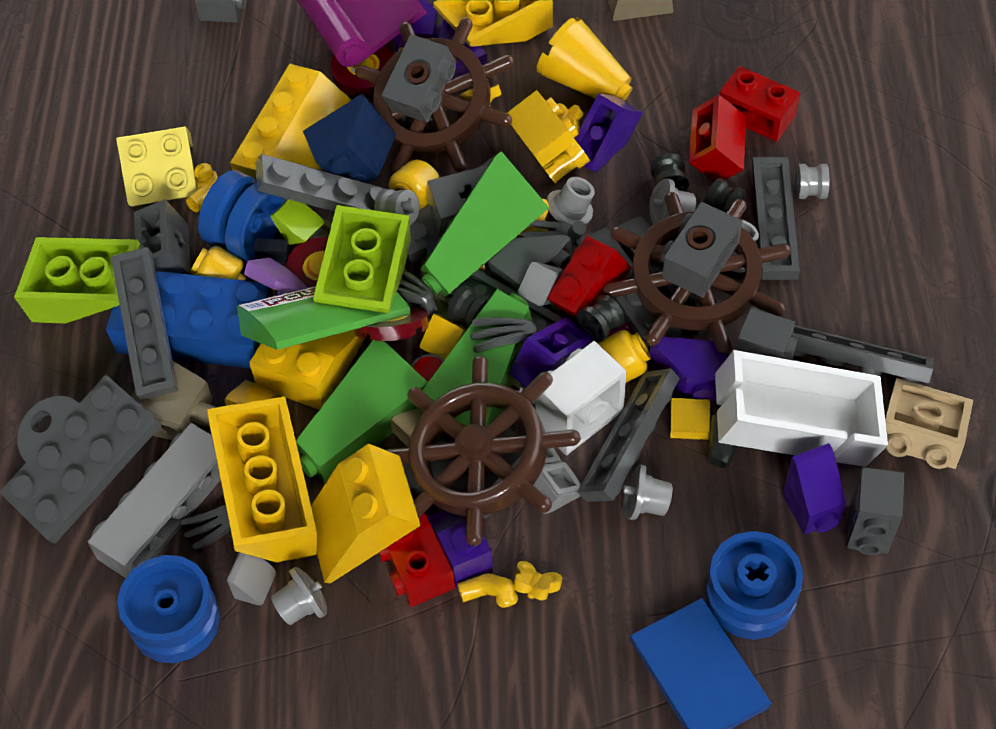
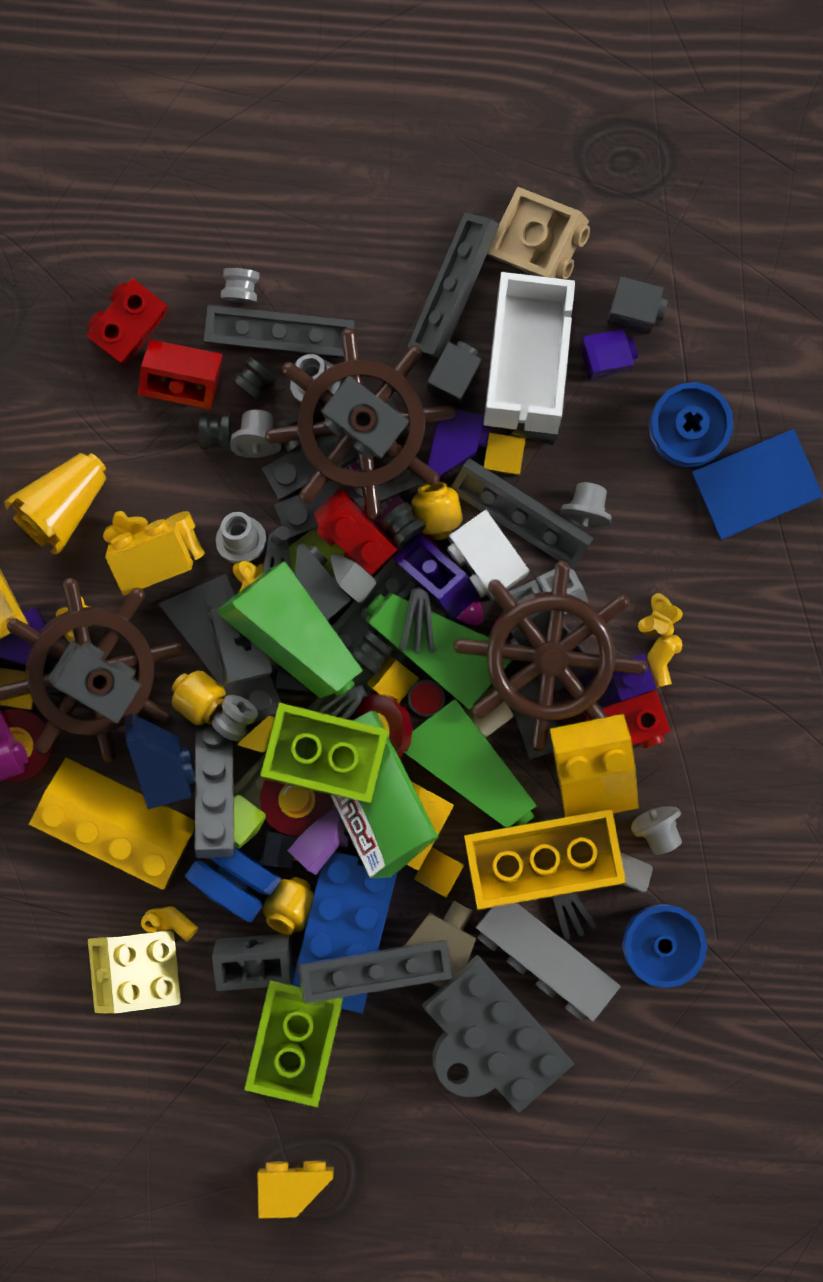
camera: 85 degrees left, 30 degrees up
(606, 129) = (146, 487): dark purple slope -> none

